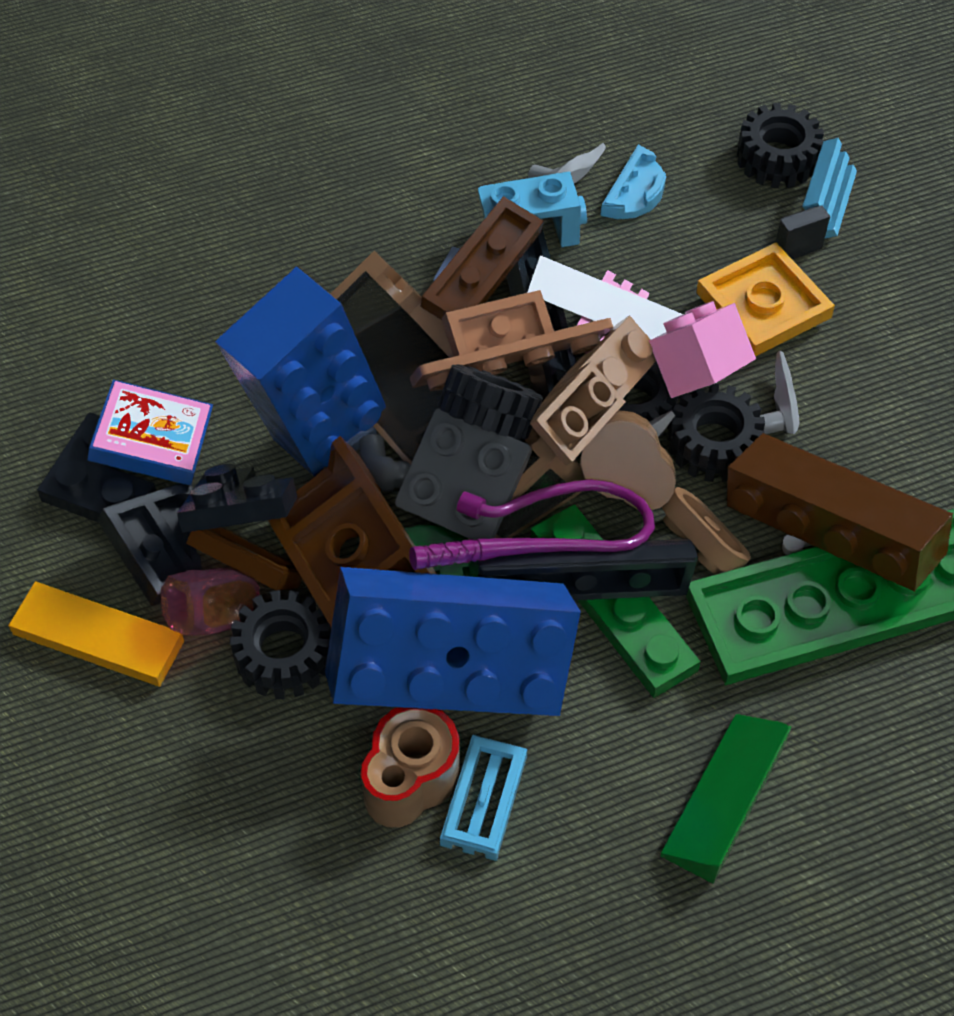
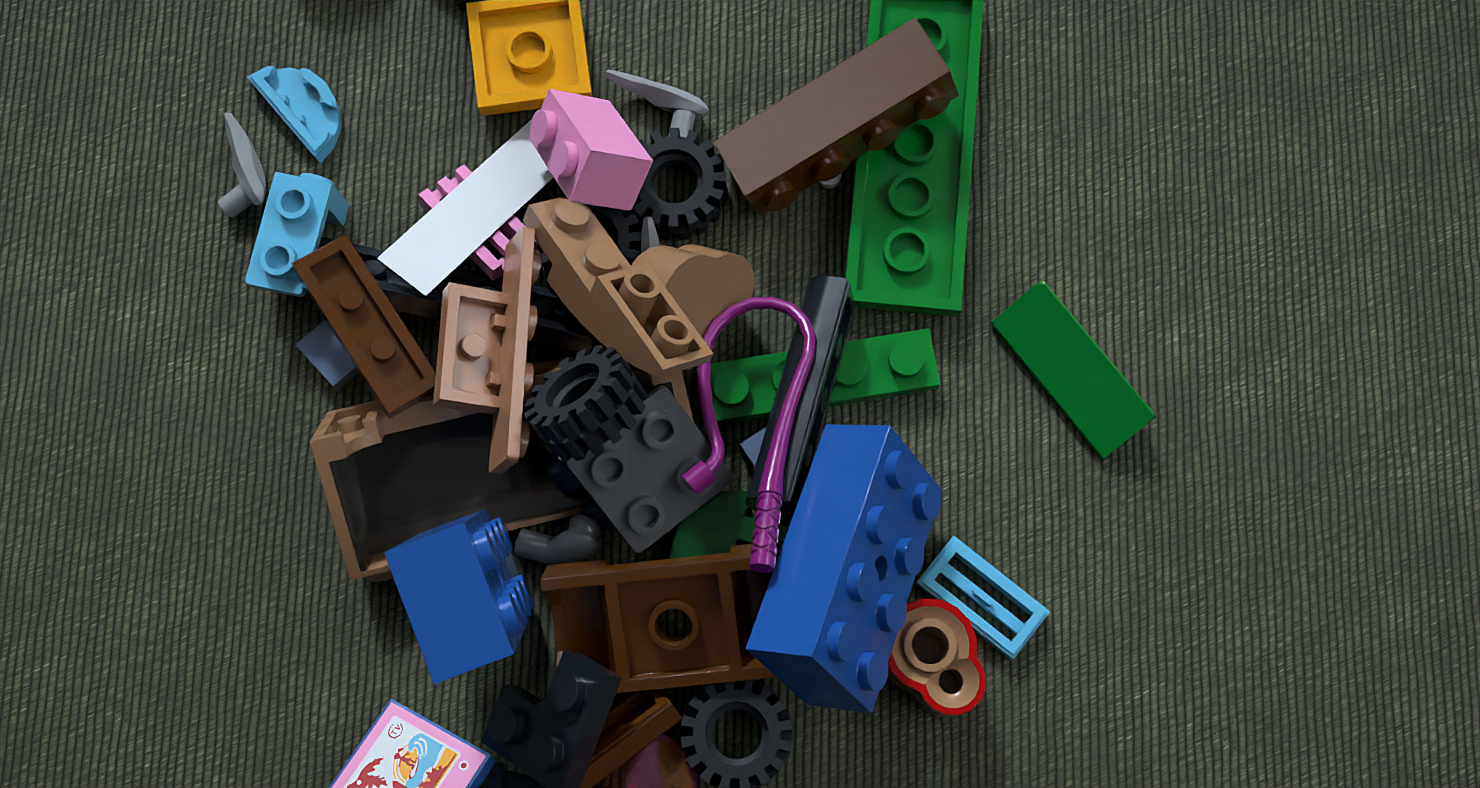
camera: 65 degrees left, 20 degrees up
(694, 520) = (794, 251): medium nougat plate -> none

